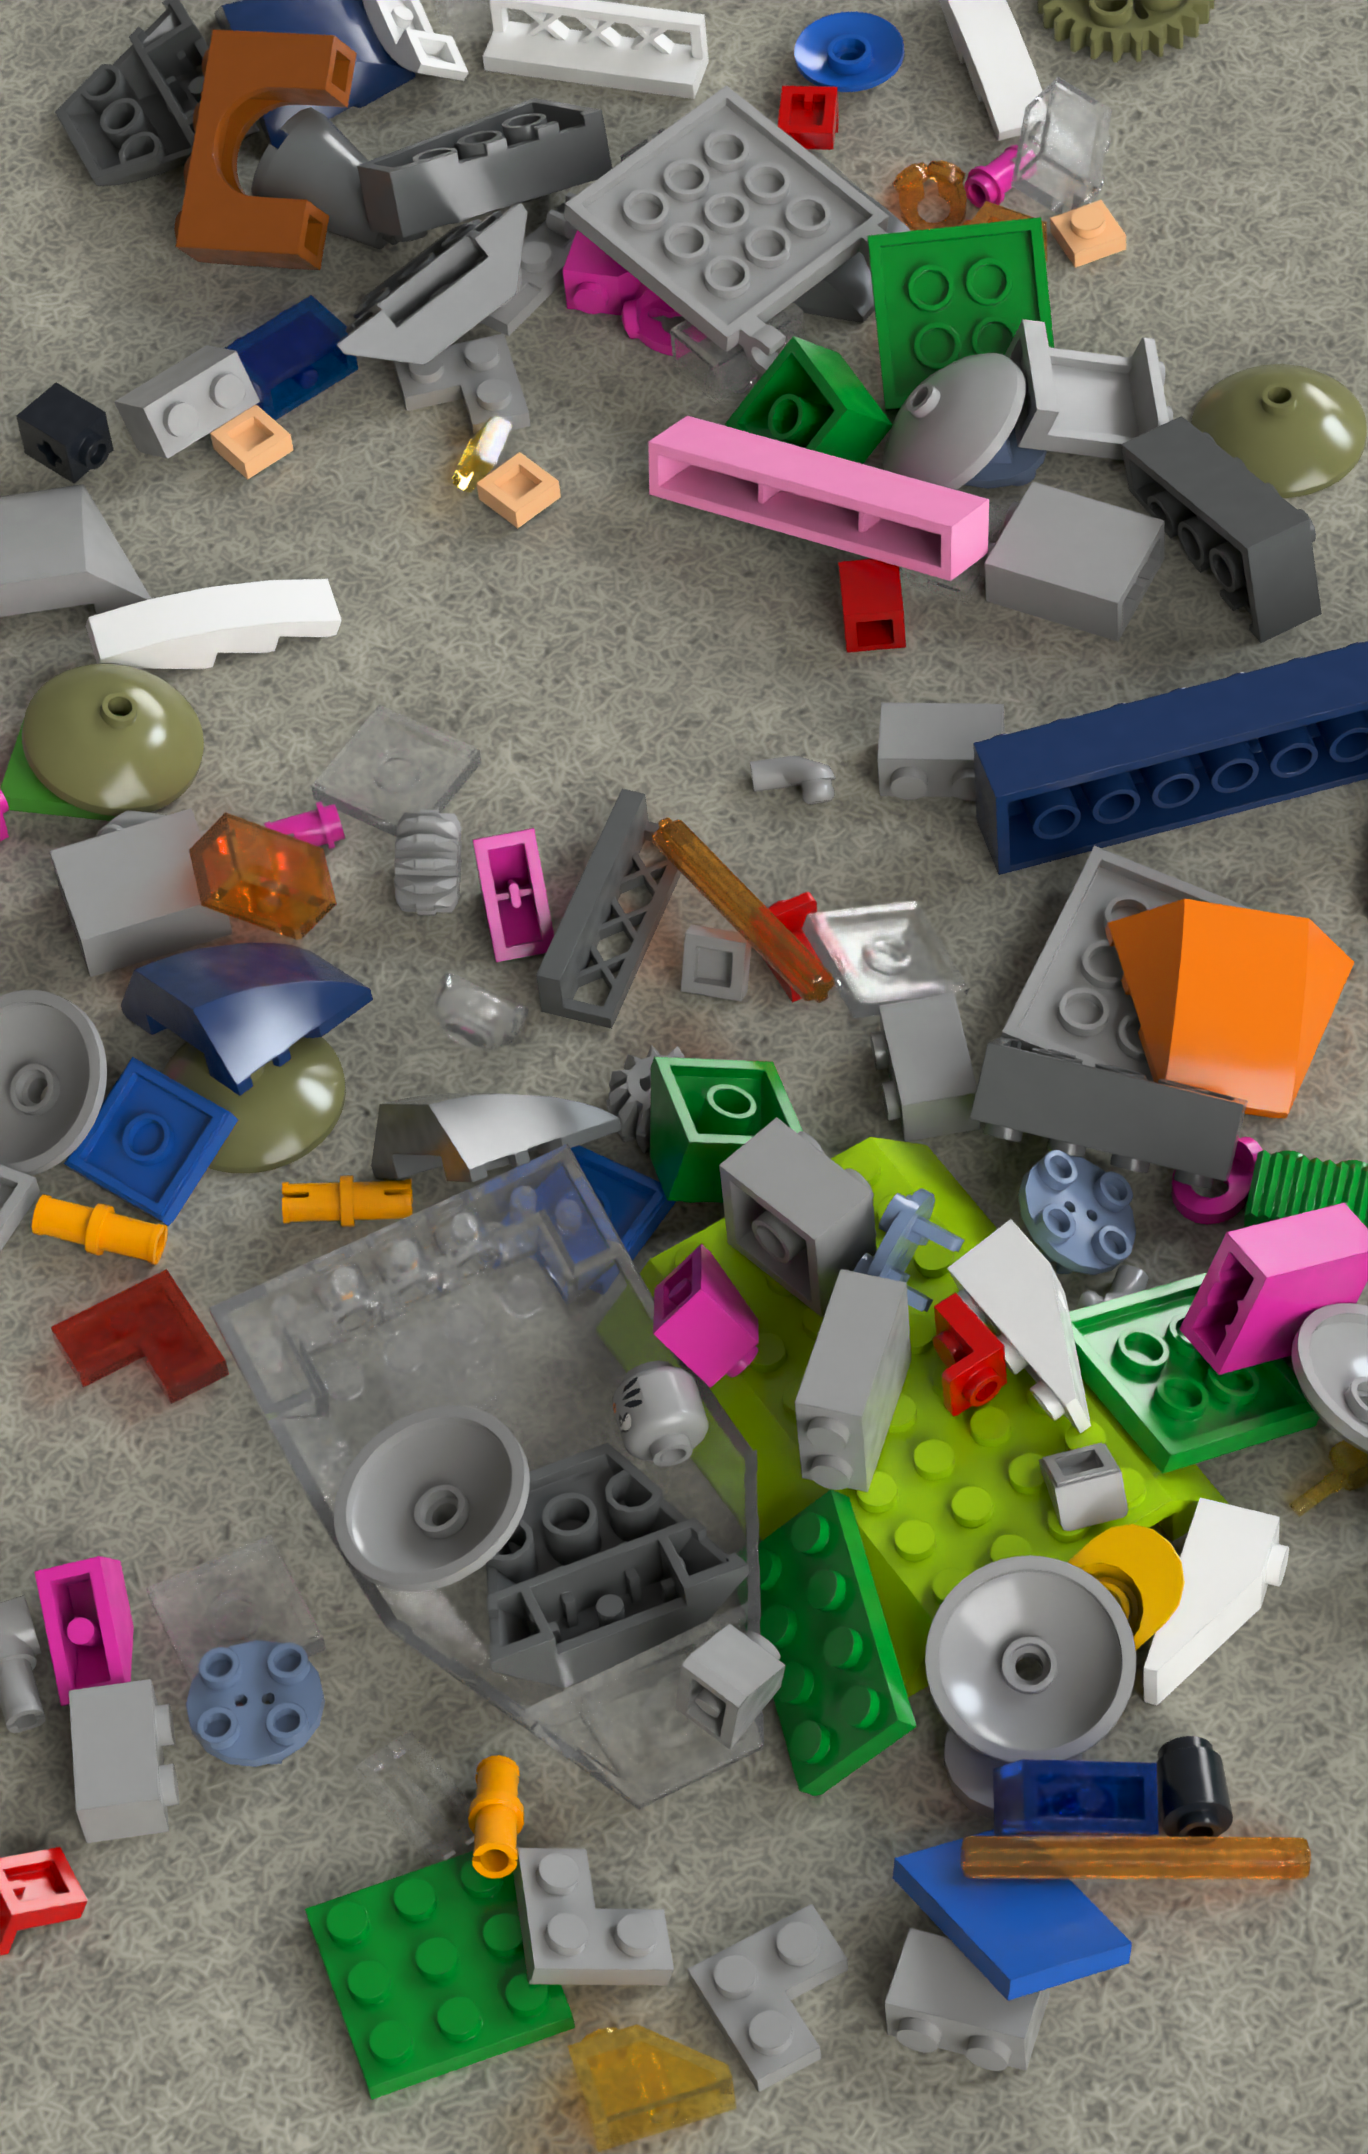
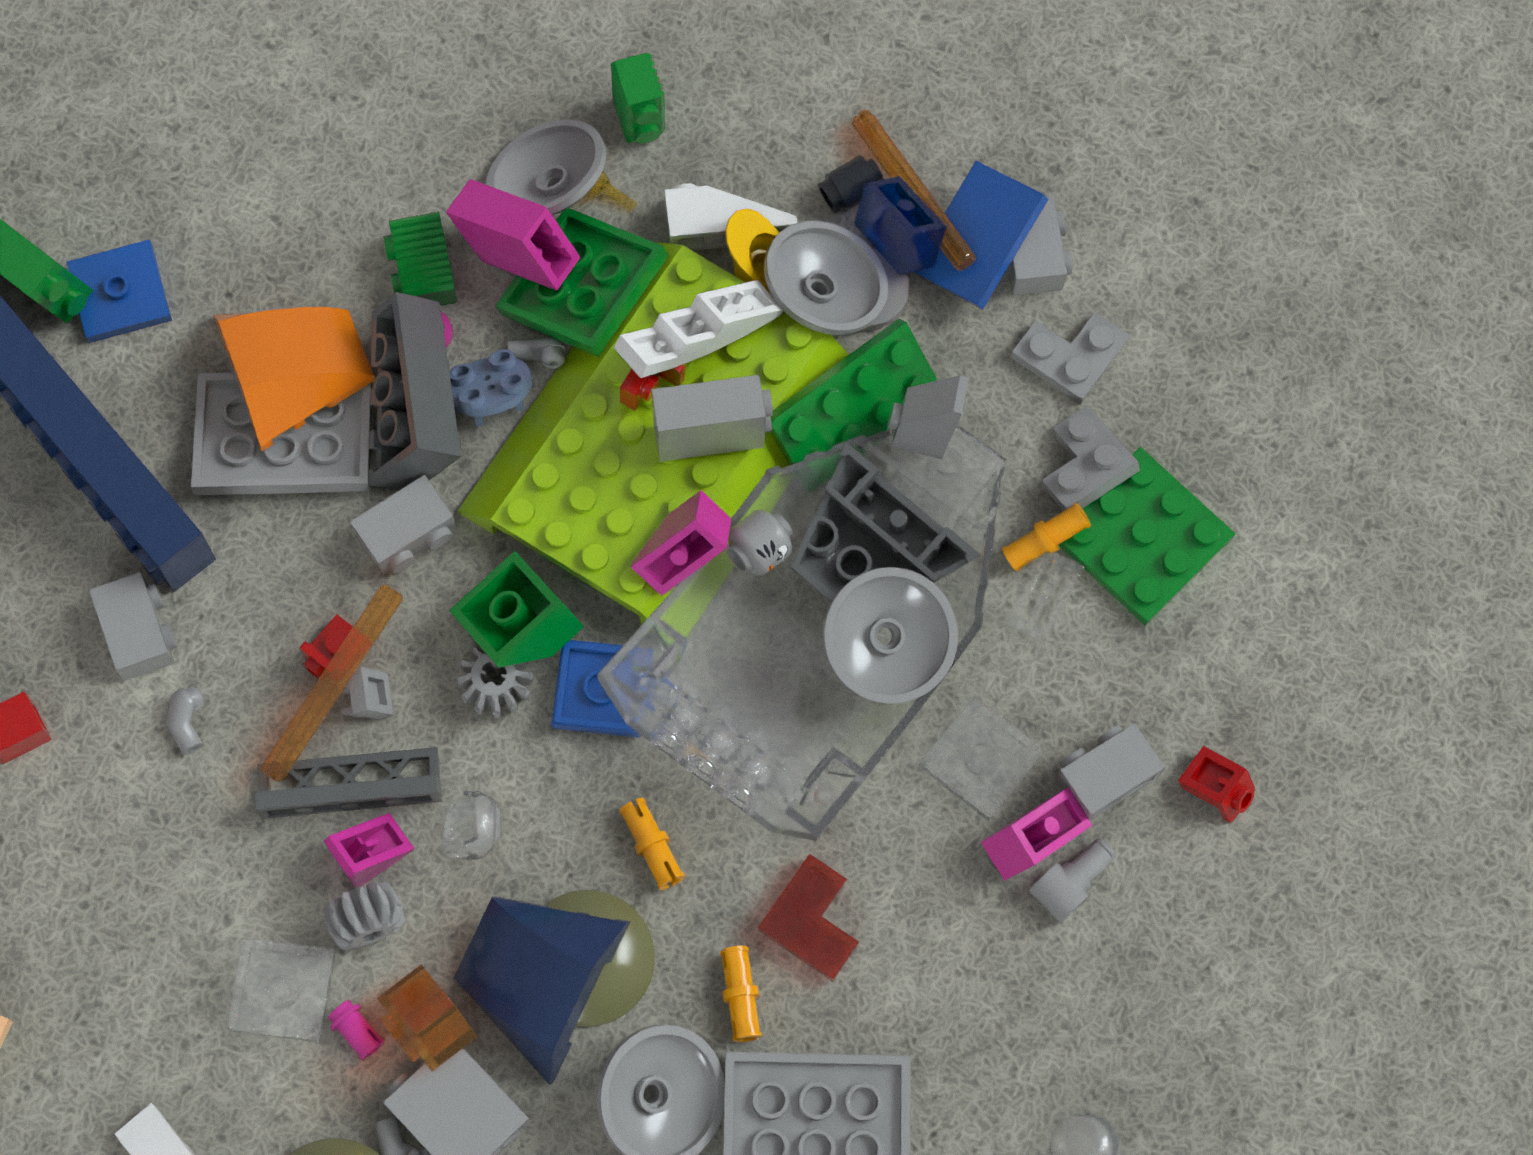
camera: 125 degrees left, 20 degrees up
(152, 1141) = (660, 988): blue plate -> none
(252, 1675) = (1060, 696): sand blue plate -> none
(479, 1132) = (590, 744): wedge -> none
(645, 2084) = (1165, 389): clear yellow slope -> none
(796, 1212) = (600, 499): light grey brick -> none
(883, 956) = (325, 588): clear plate -> none
(906, 1227) = (601, 432): sand blue plate -> none
(1000, 1423) = (695, 331): none -> white slope
(1028, 1311) = (594, 365): white slope -> none
(1084, 1486) = (698, 278): light grey slope -> none

